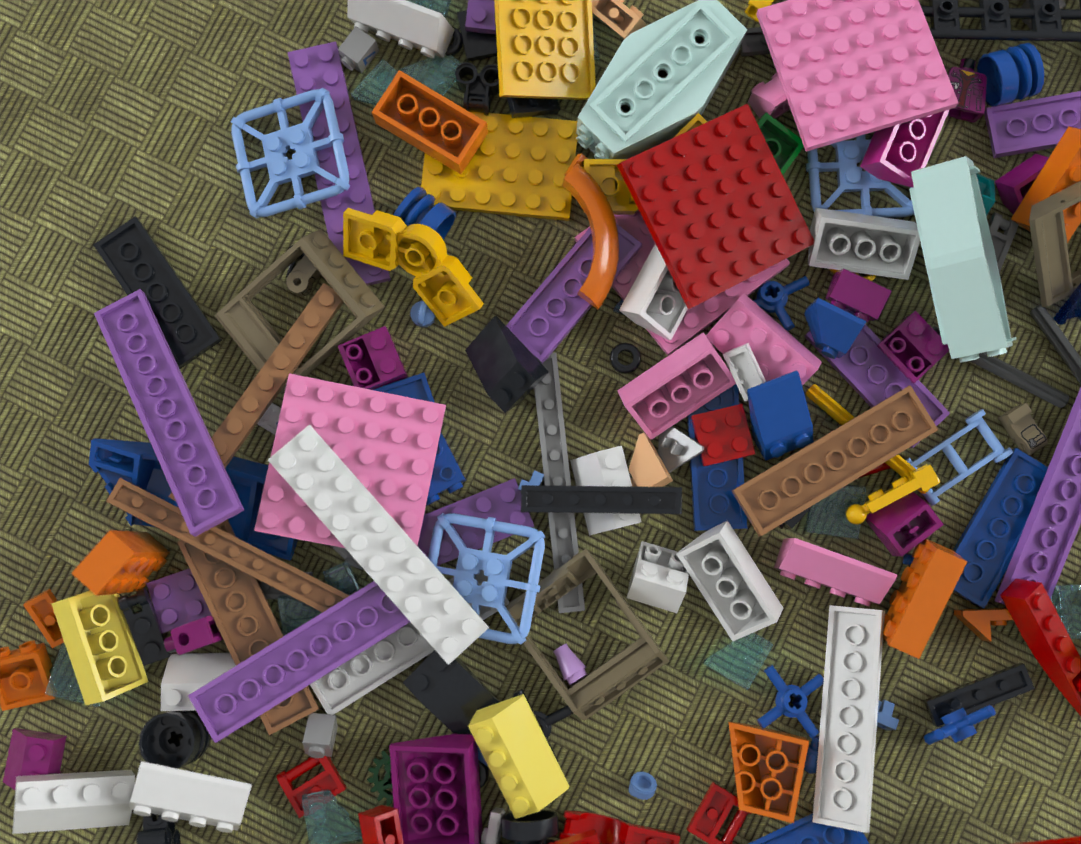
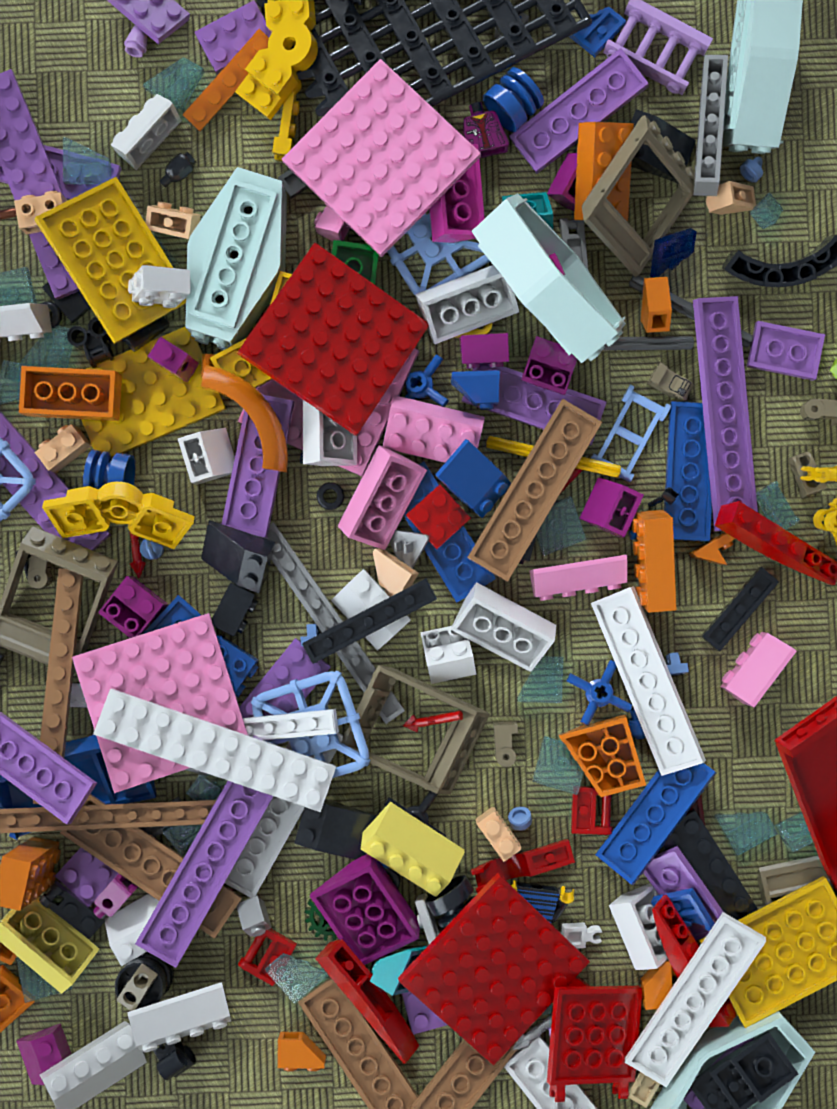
camera: 25 degrees left, 5 degrees up
(166, 741) = (137, 986): none -> dark tan leg
(392, 171) = (62, 448): none -> light nougat brick
(400, 321) = (137, 564): none -> red piece
(468, 561) = (293, 725): none -> white tile
(471, 416) = (234, 609): none -> black brick
(528, 253) = (207, 455): none -> white slope
(545, 140) = (173, 359): none -> magenta torso
(570, 665) = (416, 758): lavender cone -> none
(575, 64) = (159, 286): none -> white brick
(586, 628) = (414, 723): none -> red piece
(612, 789) = (498, 834): none -> light nougat brick
(666, 698) = (503, 733): none -> dark tan leg
(709, 754) = (557, 767): none -> clear light blue plate
(744, 368) = (425, 457): white plate -> none
(921, 479) = (609, 468): yellow plate -> none
(959, 725) = (734, 642): blue bar -> none
(966, 540) = (668, 495): none -> black hand
(968, 766) = (757, 668): none -> bright pink slope
(1050, 344) = (656, 305): none -> orange slope

